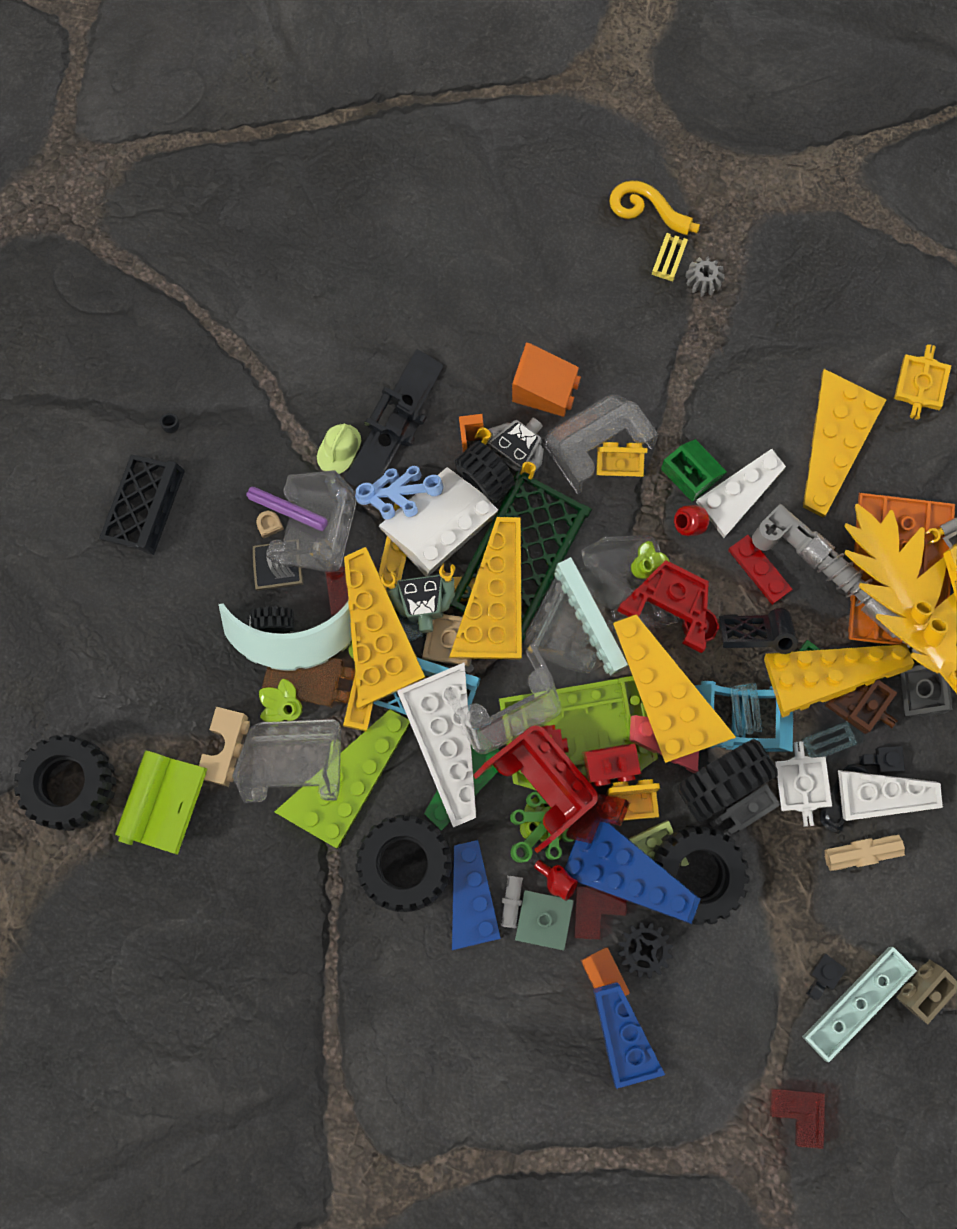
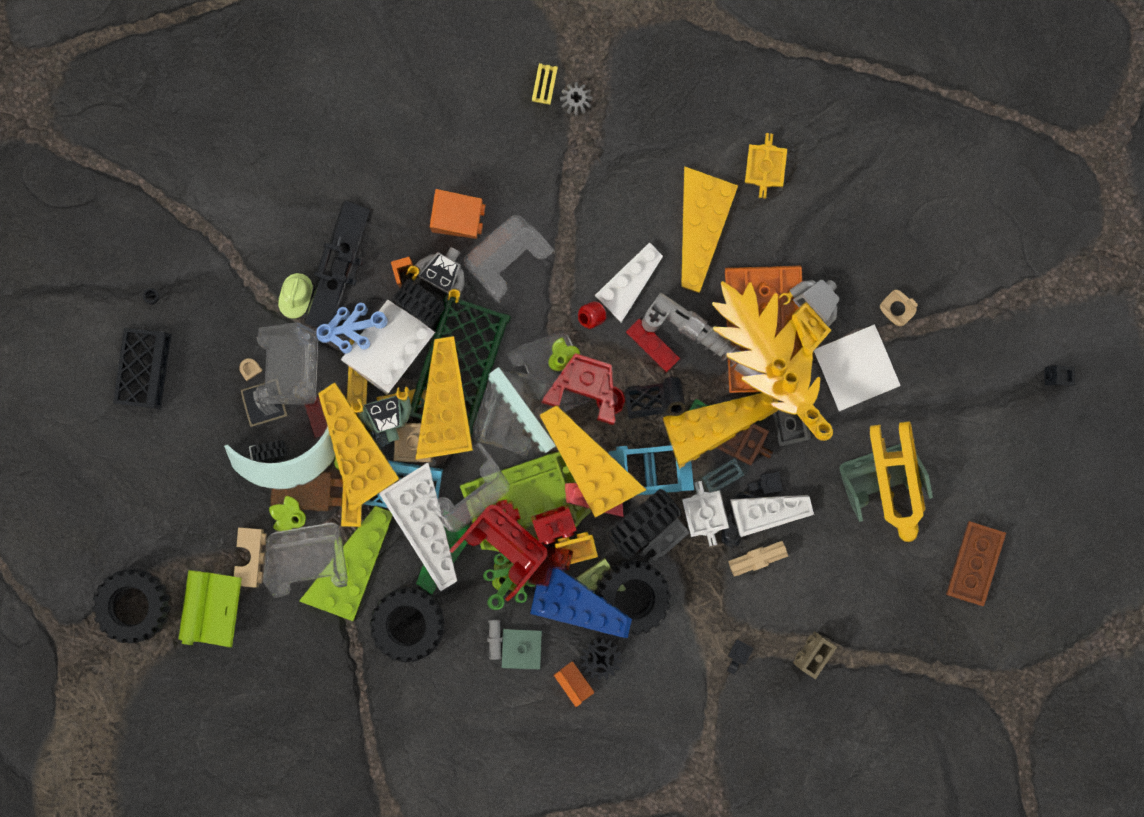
camera: 15 degrees left, 10 degrees up
(287, 508) = (263, 355): medium lavender axle -> none
(472, 903) = (465, 647): blue wing -> none
(558, 880) = (527, 618): red piece -> none
(590, 906) = (554, 636): clear red plate -> none
(620, 460) = (528, 272): yellow bracket -> none
(626, 1044) = (595, 729): blue wing -> none
(674, 220) = (545, 51): yellow plant -> none
(692, 469) = (588, 270): green slope -> none
(749, 729) = (658, 477): clear light blue tile -> none
(806, 1109) = (734, 753): clear red plate -> none
(859, 1004) = (765, 672): light aqua piece -> none

